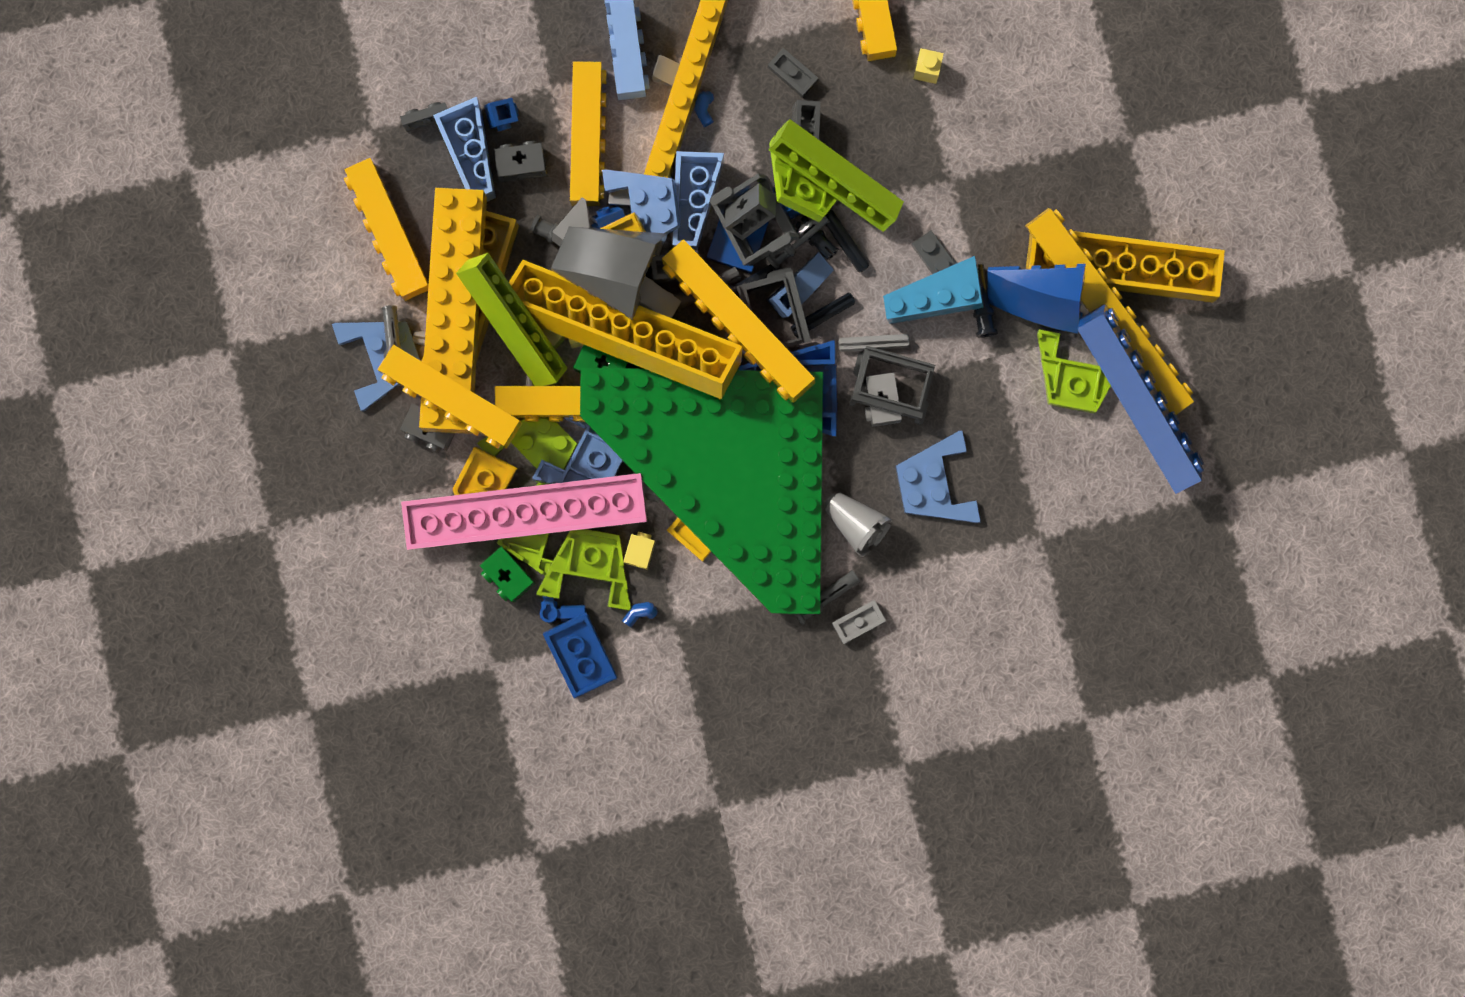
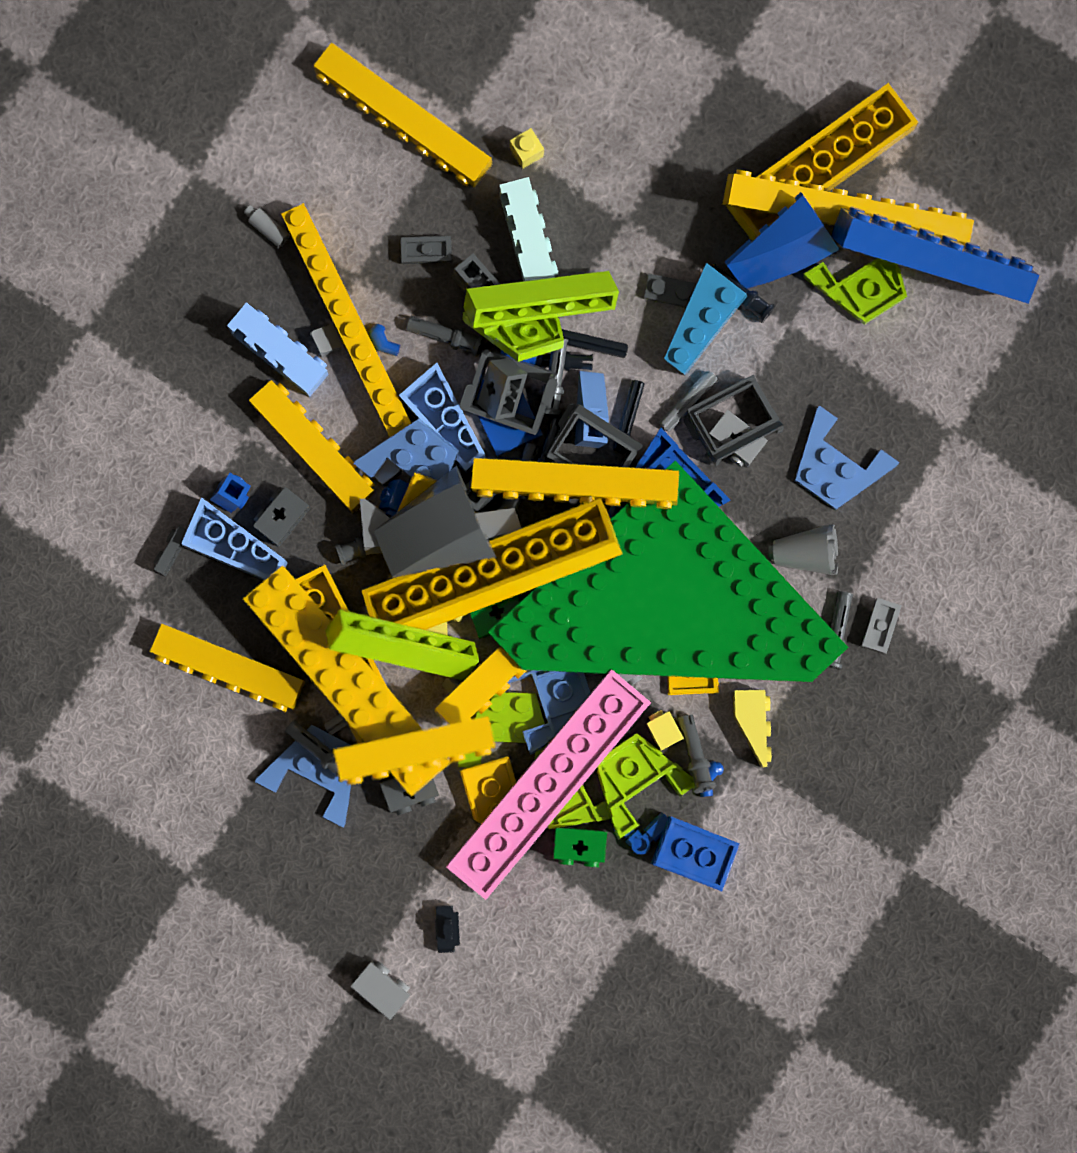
camera: 50 degrees left, 0 degrees up
(281, 544) = (381, 989): none -> light grey brick
(364, 545) = (447, 929): none -> black piece
(639, 596) = (698, 764): none -> dark grey pin
(707, 599) = (750, 716): none -> light yellow slope
(755, 151) = (456, 338): none -> dark grey pin
(874, 121) = (526, 230): none -> light aqua wedge

